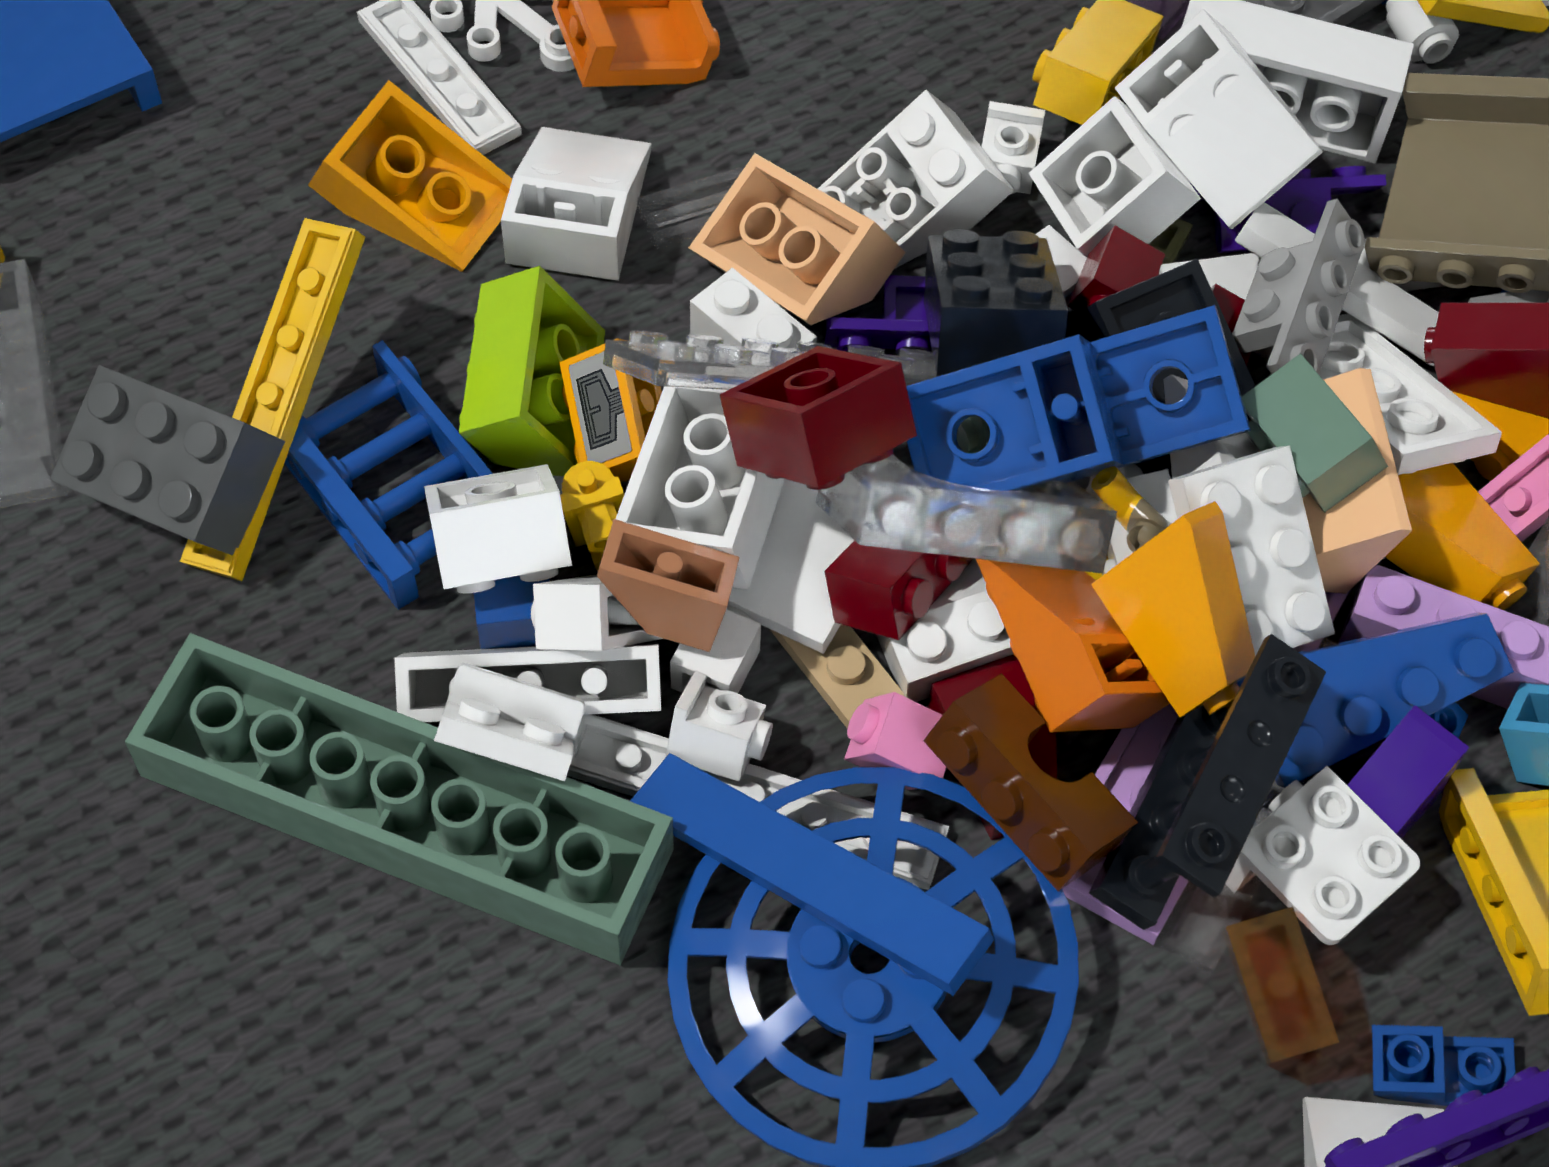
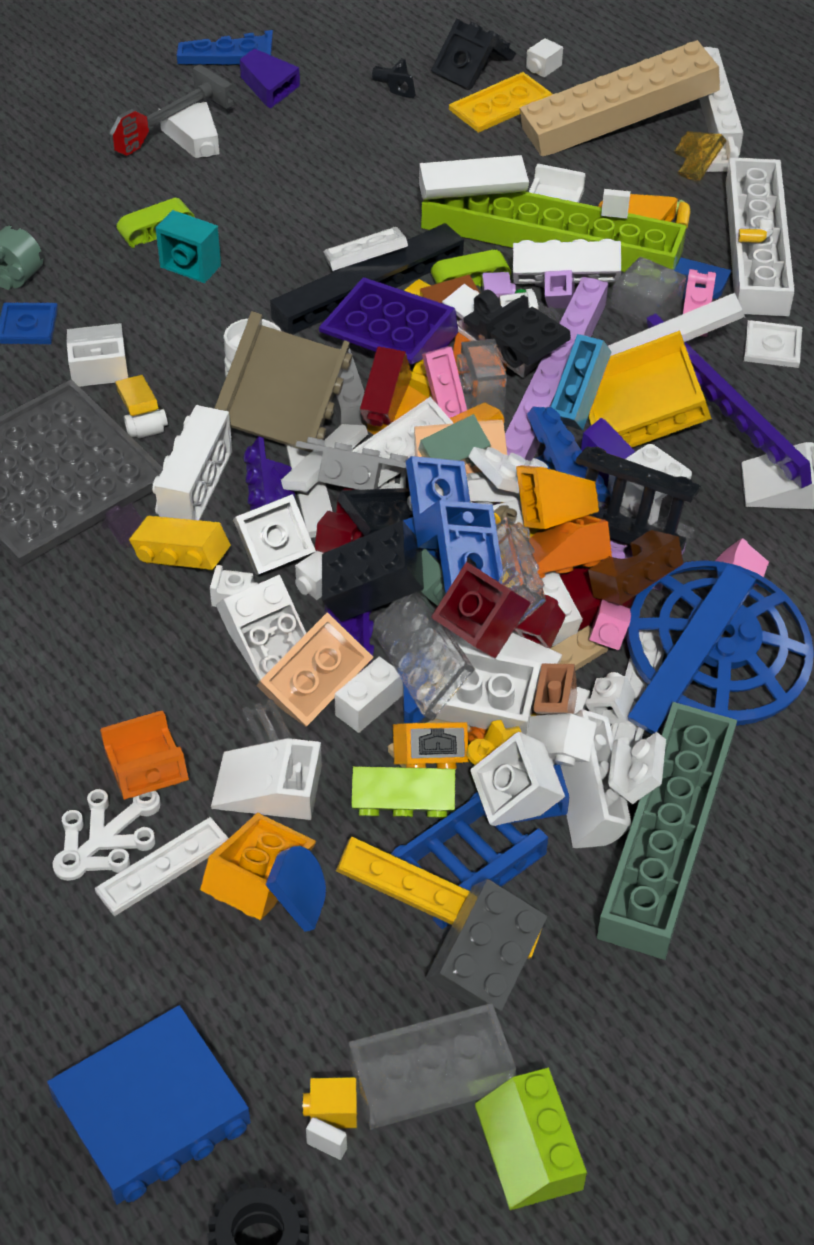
camera: 90 degrees left, 10 degrees down
(360, 198) = (298, 885): none -> blue tile
(1110, 1058) = (745, 556): none -> bright pink tile
(1218, 118) = (244, 480): white slope -> none
(1280, 986) = (716, 500): clear orange brick -> none
(1434, 1068) = (723, 460): blue slope -> none

